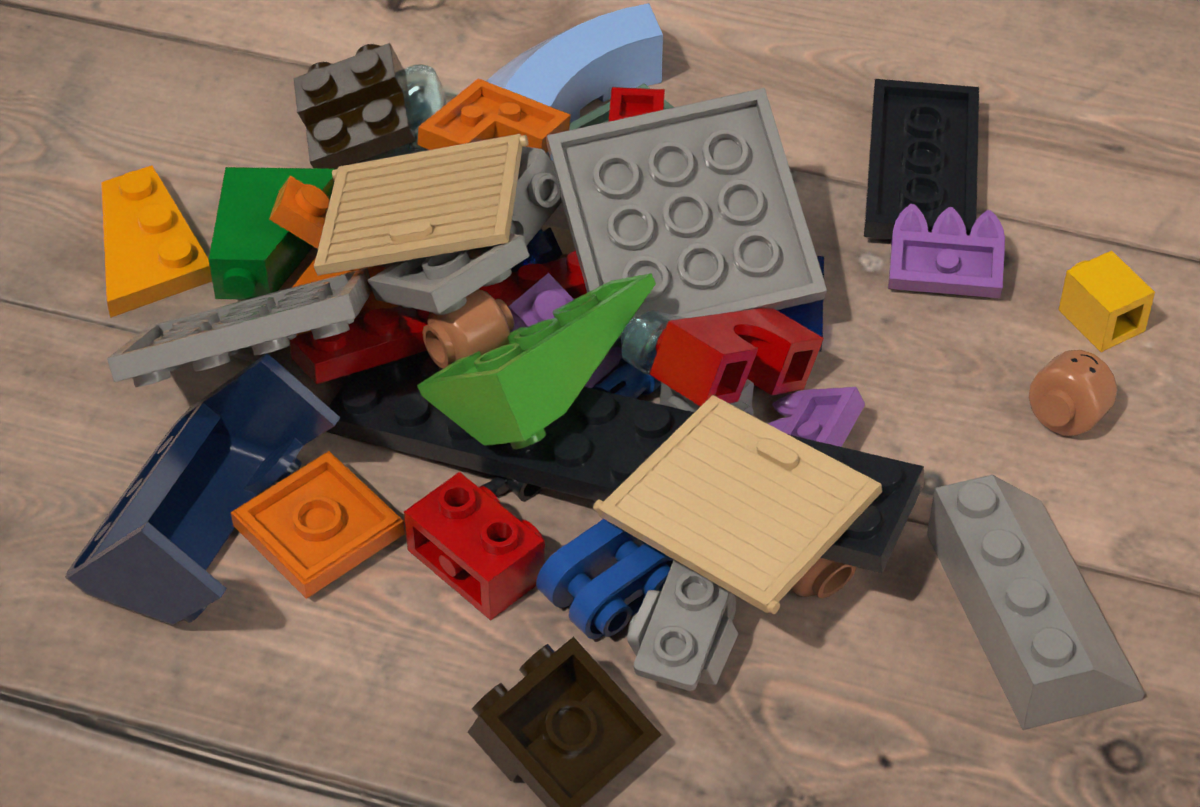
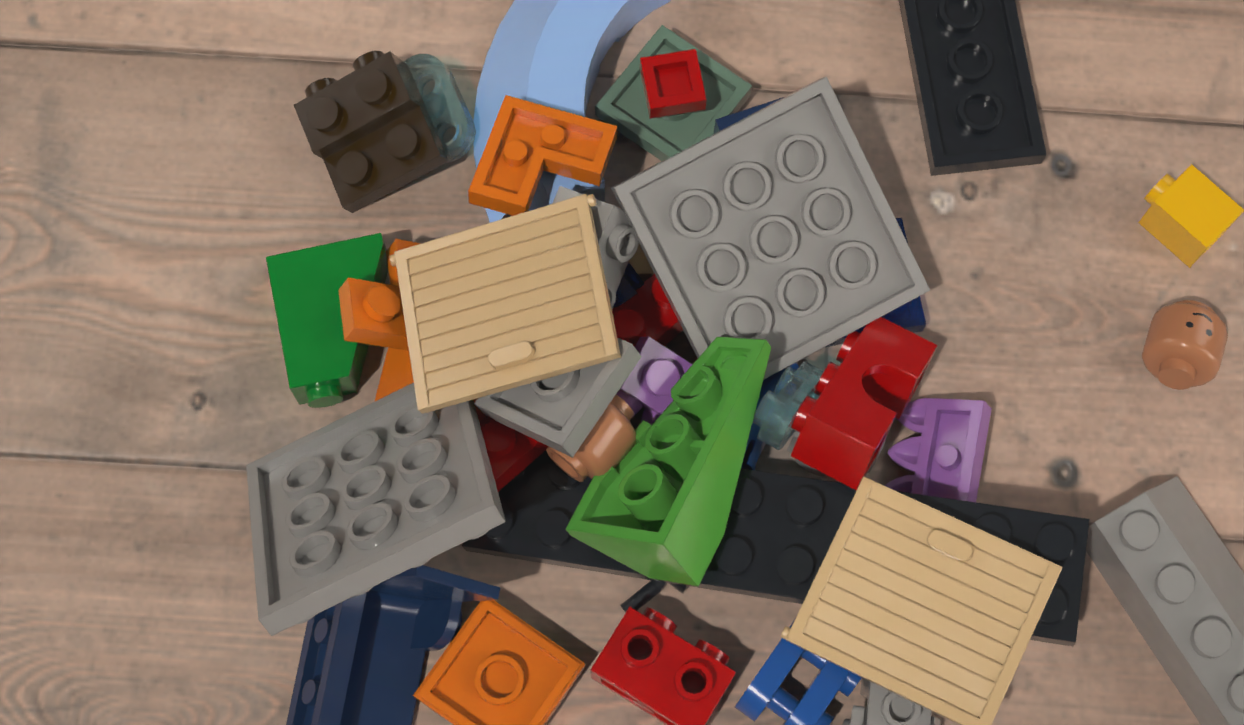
camera: 15 degrees left, 25 degrees up
(147, 243) = (206, 352): light orange wing -> none
(947, 257) = (1028, 194): medium lavender plate -> none

